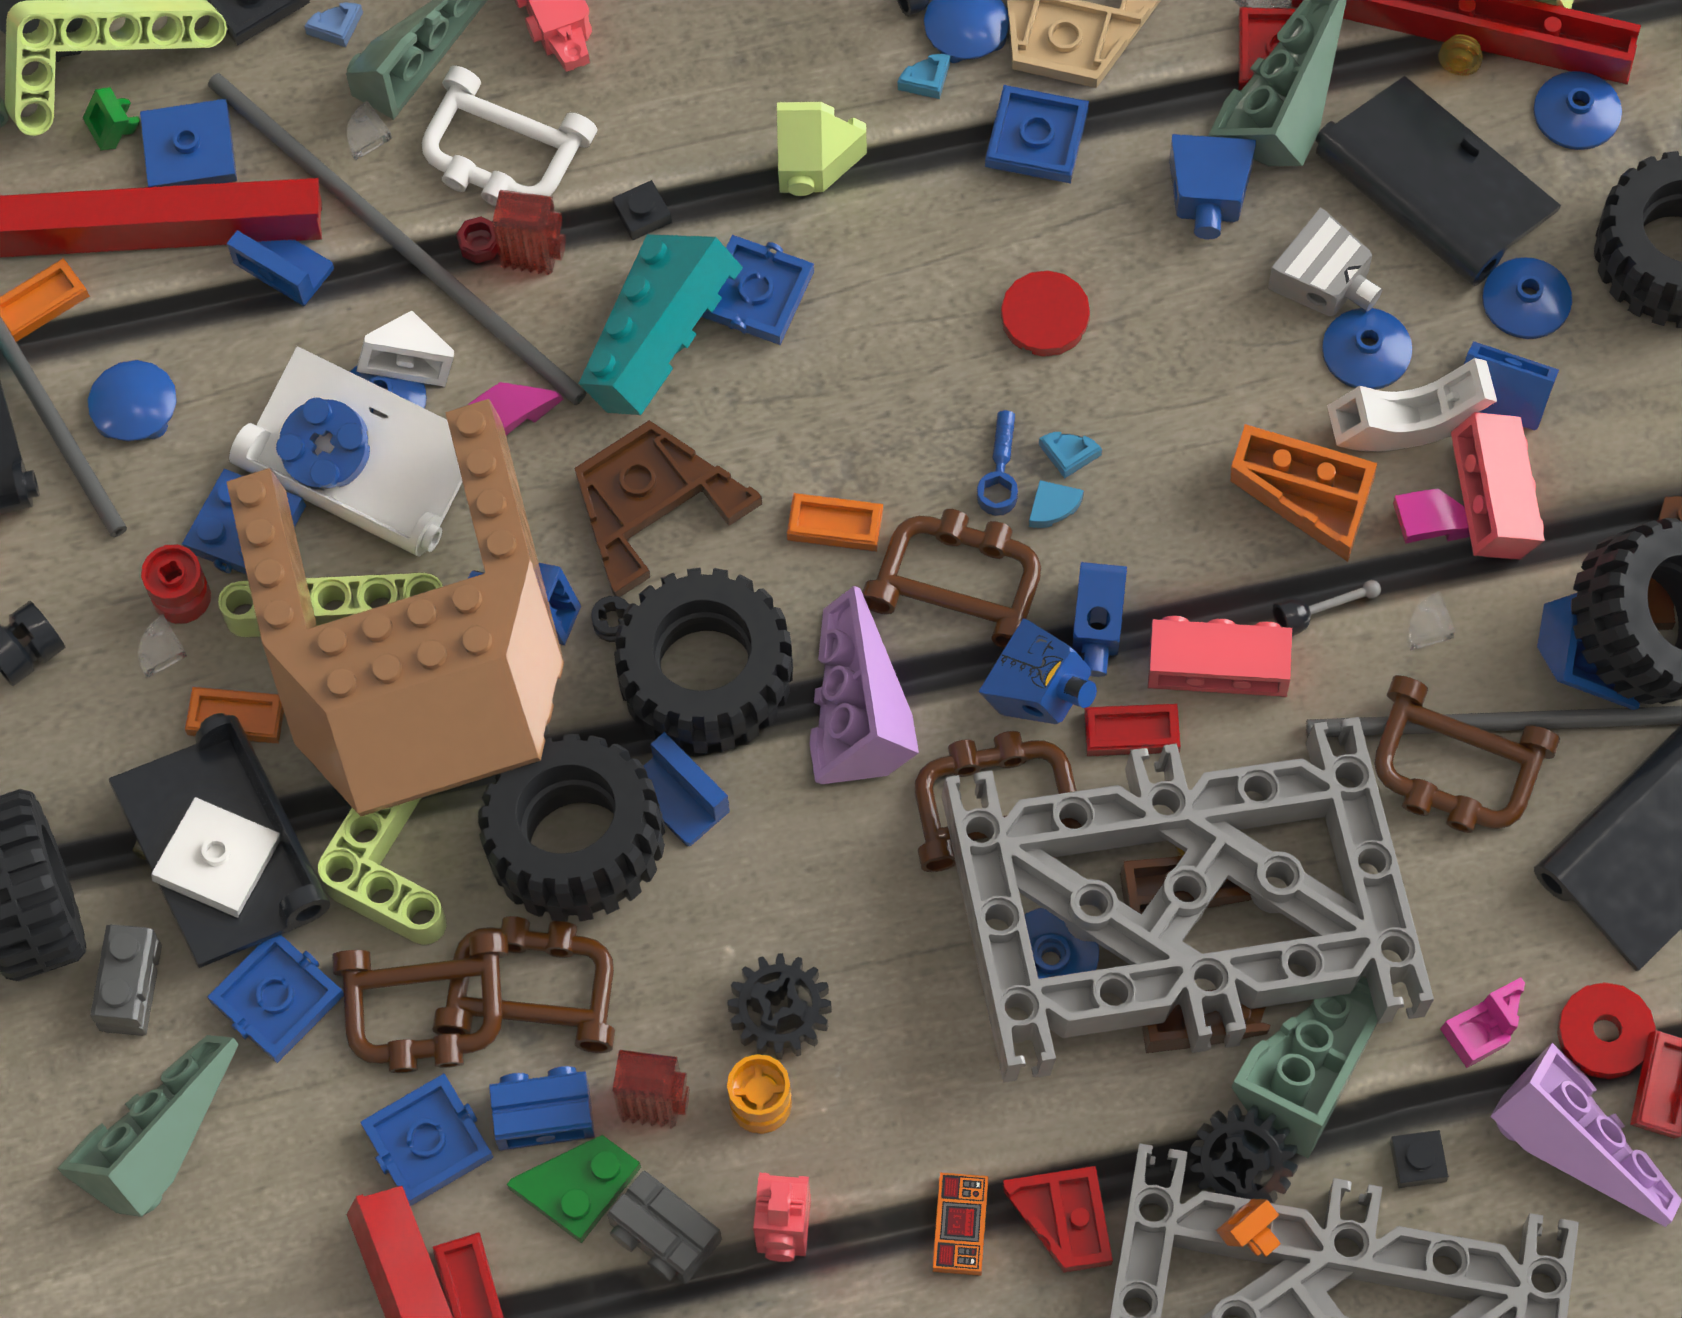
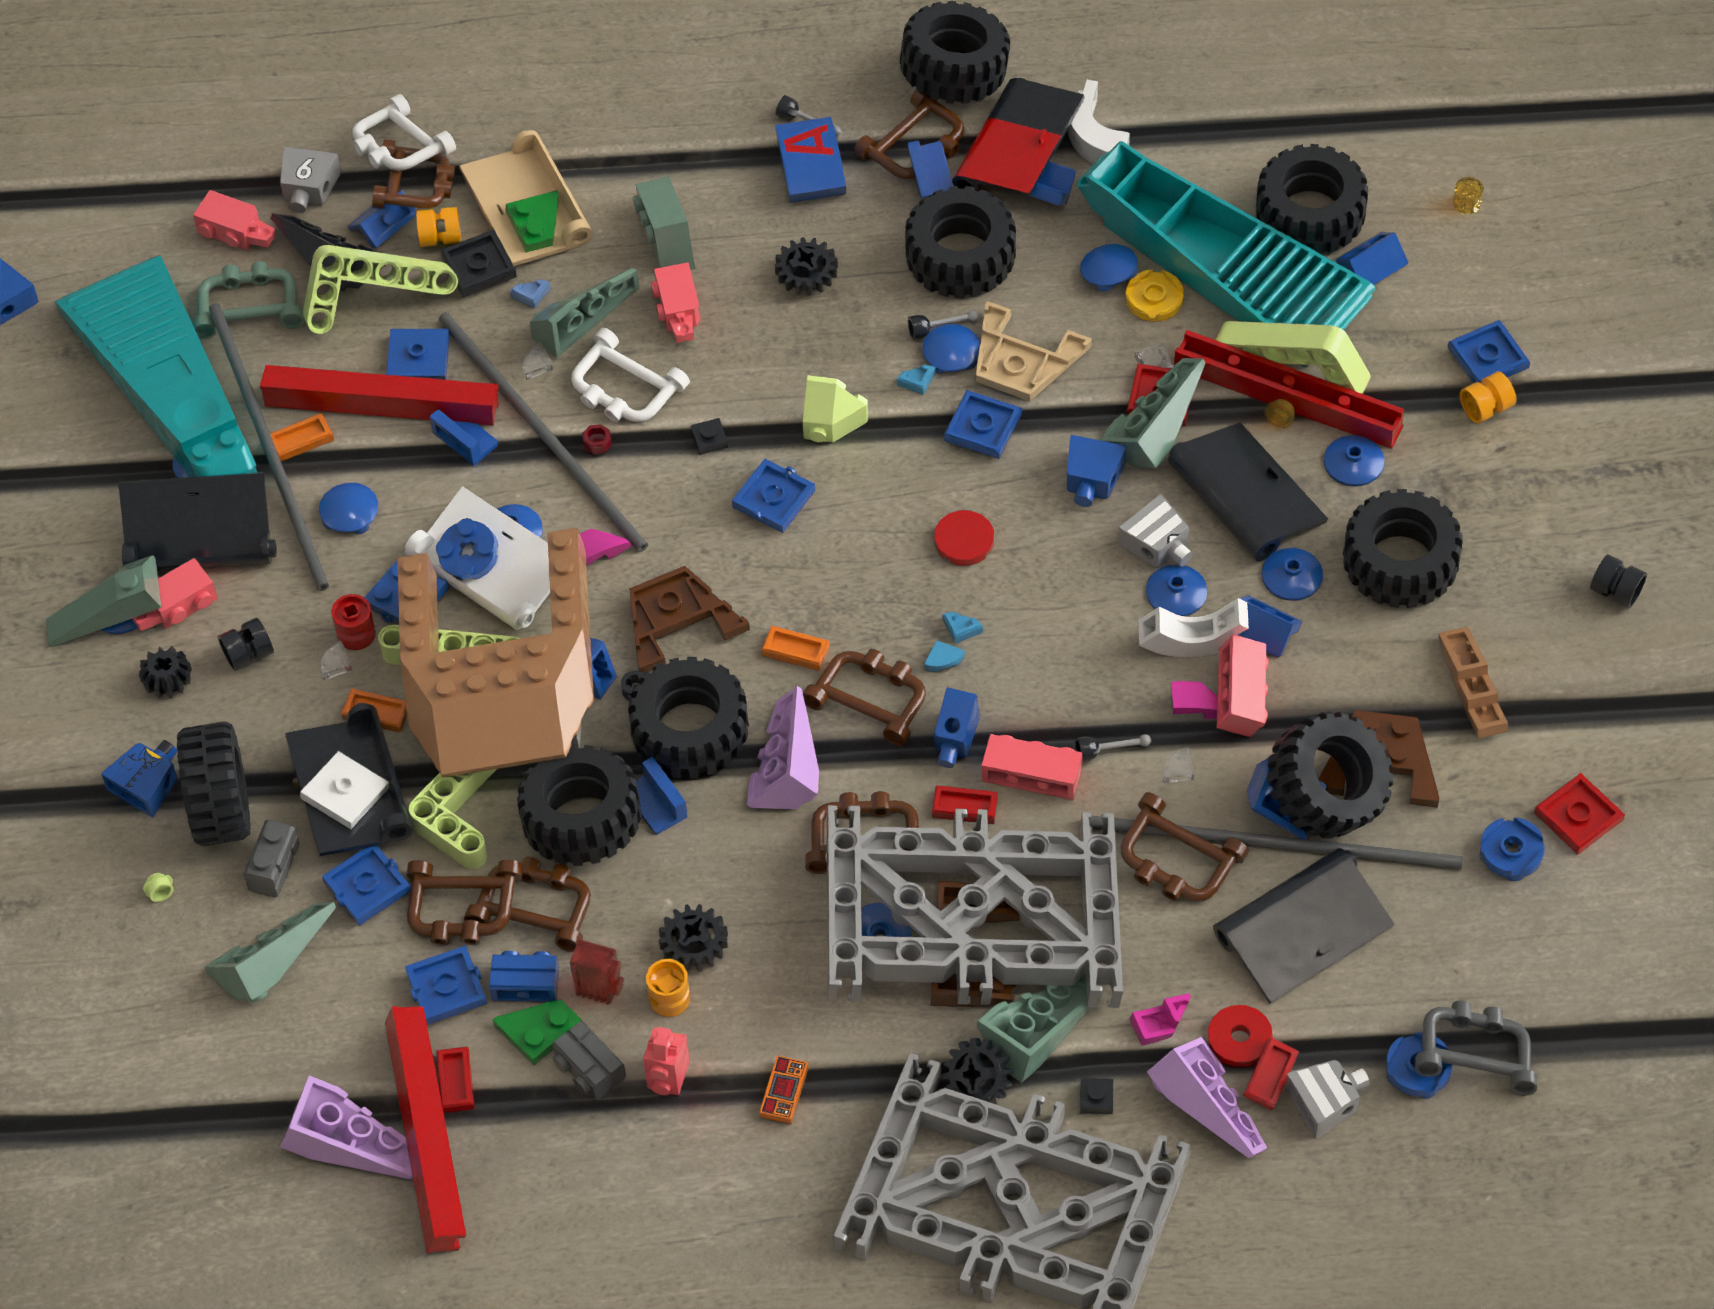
camera: 10 degrees right, 10 degrees down
(108, 118) = (368, 330): green tile -> none
(406, 352) = (533, 500): white slope -> none
(528, 231) = (628, 436): clear red brick -> none
(655, 317) = (701, 502): teal wedge -> none
(1001, 457) = (915, 622): blue piece -> none
(1038, 677) = (905, 759): blue torso -> none
(1065, 1216) = (853, 1093): red wing -> none
(1250, 1228) = (970, 1111): orange tile -> none
(1306, 485) = (1113, 666): orange wedge -> none

